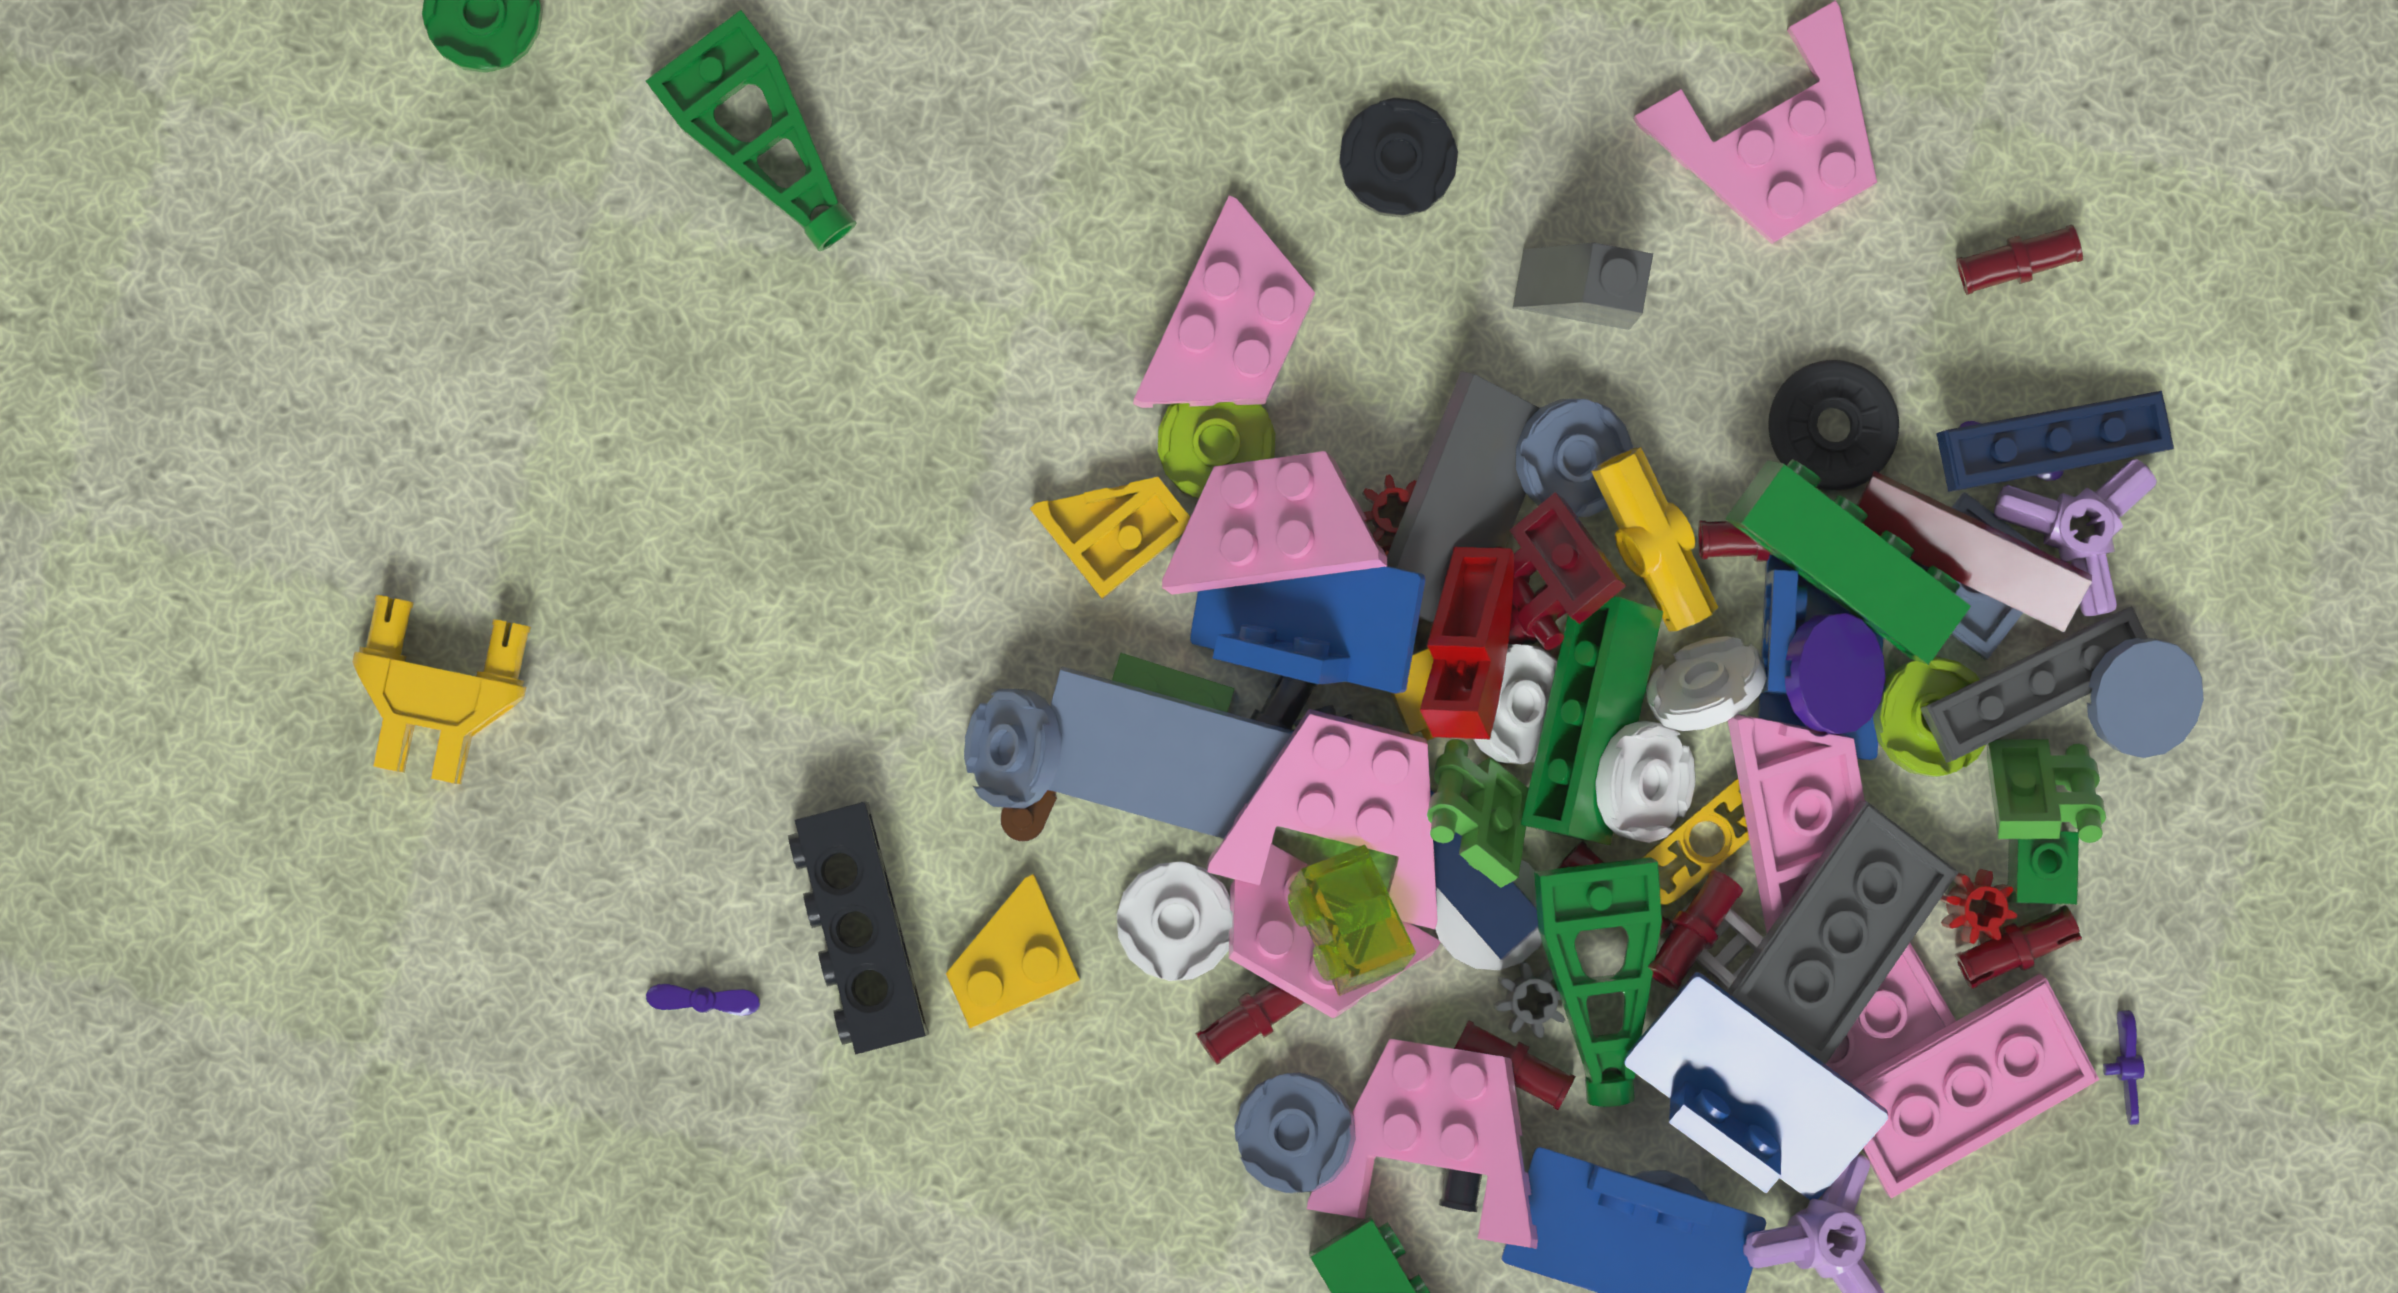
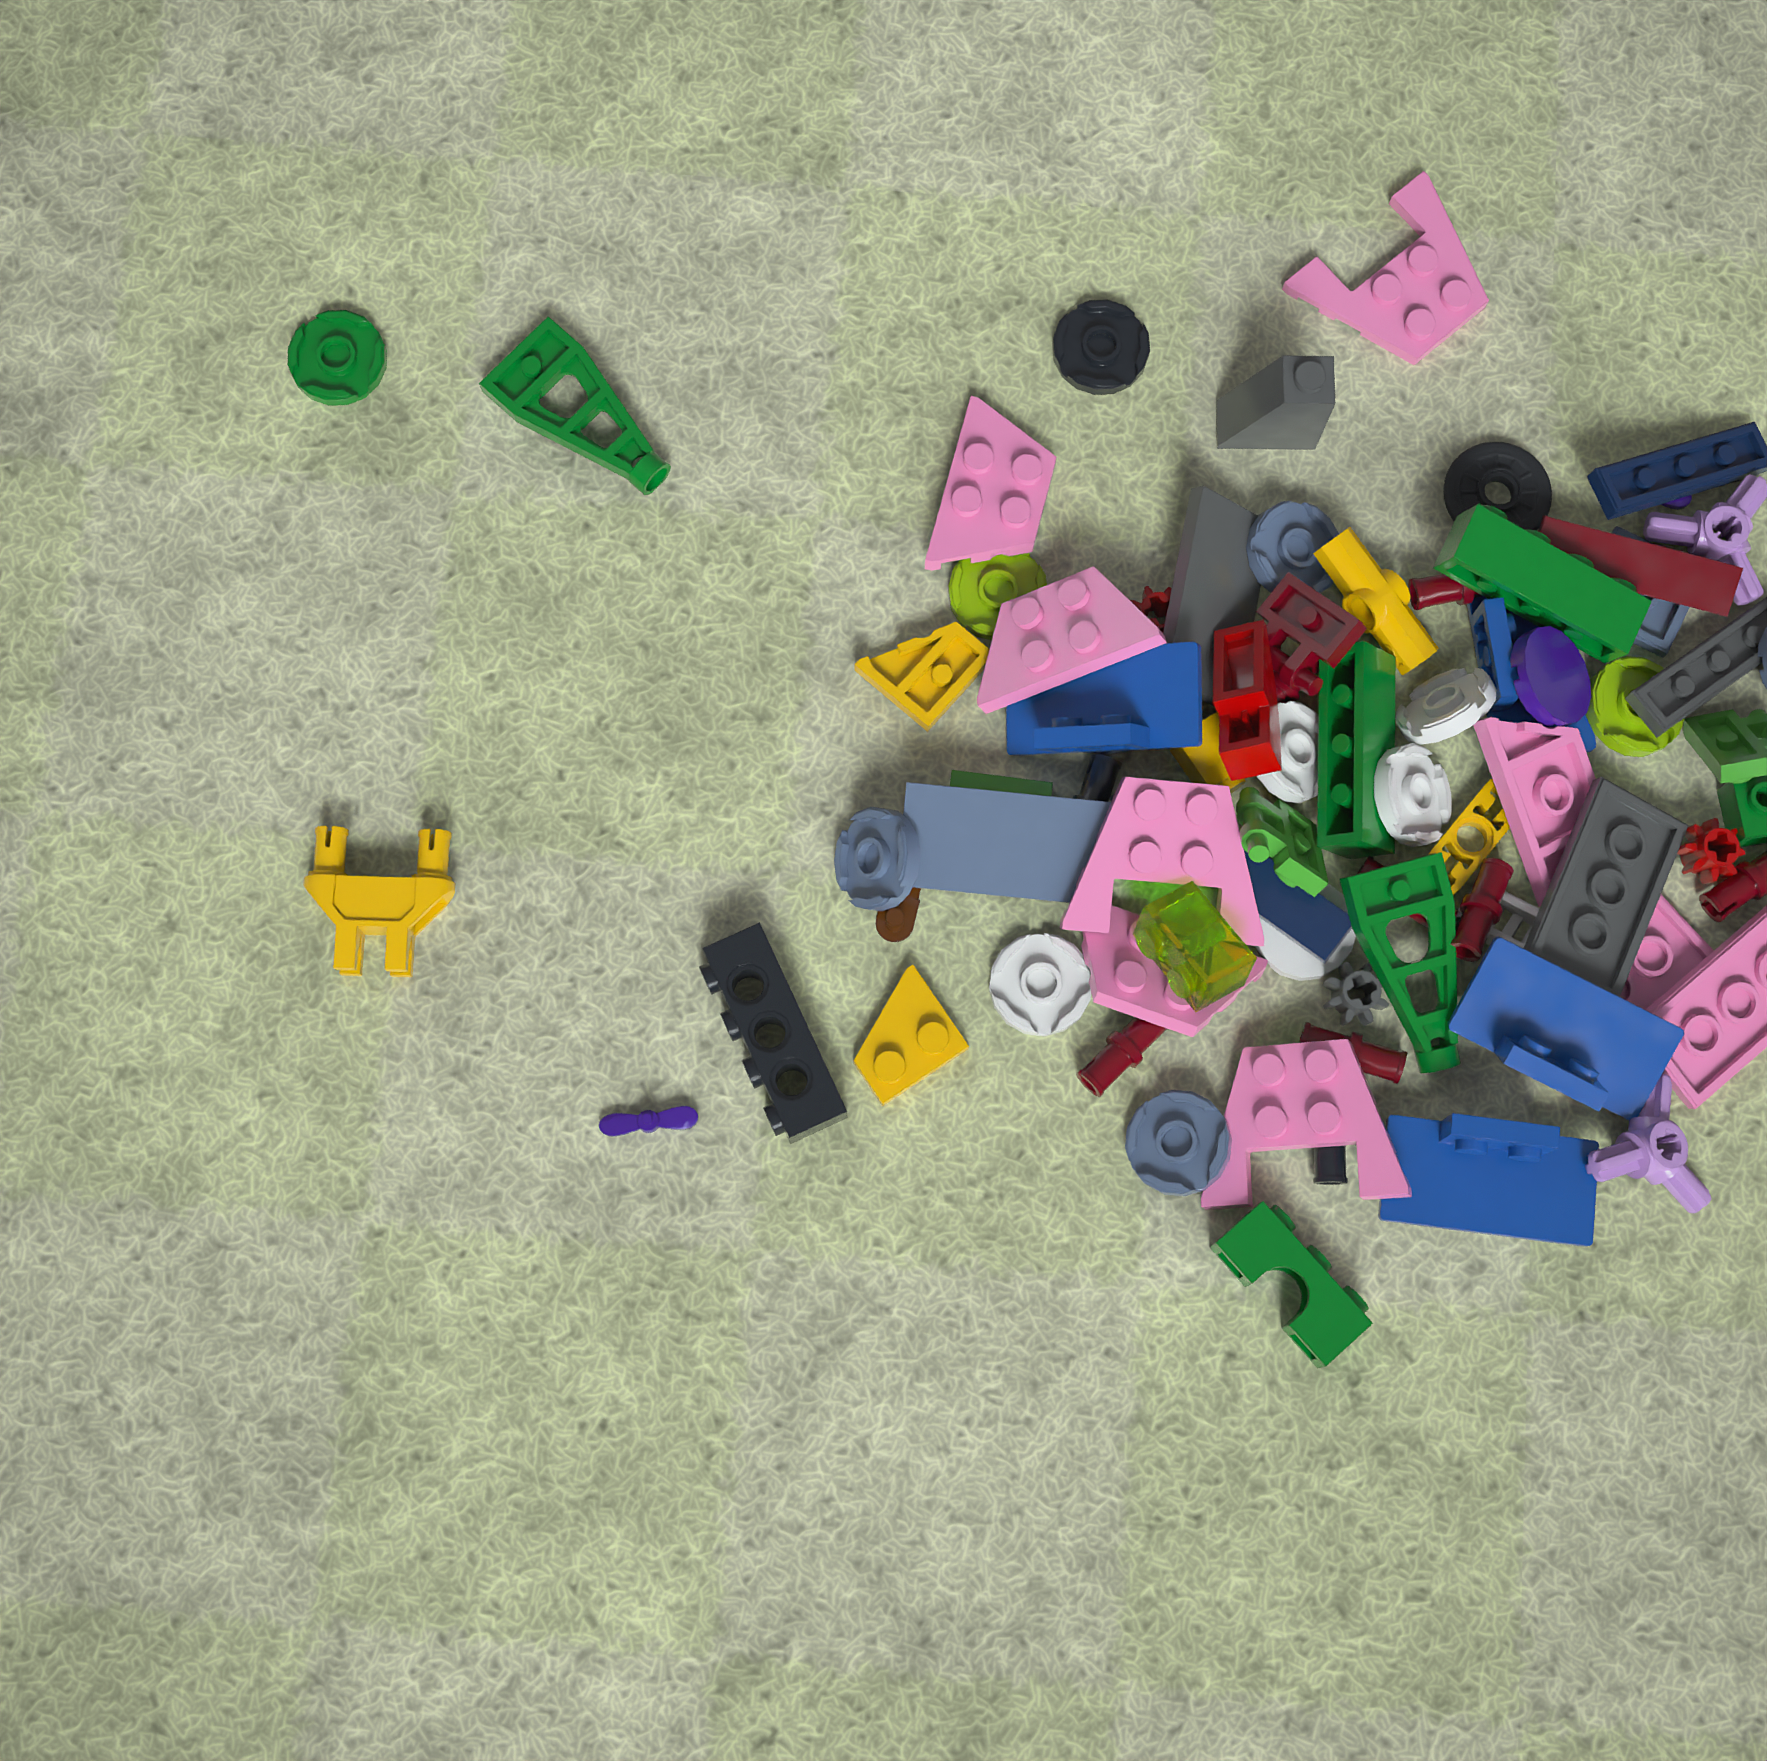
camera: 10 degrees left, 10 degrees down
(2019, 259) = (1616, 340): dark red pin -> none

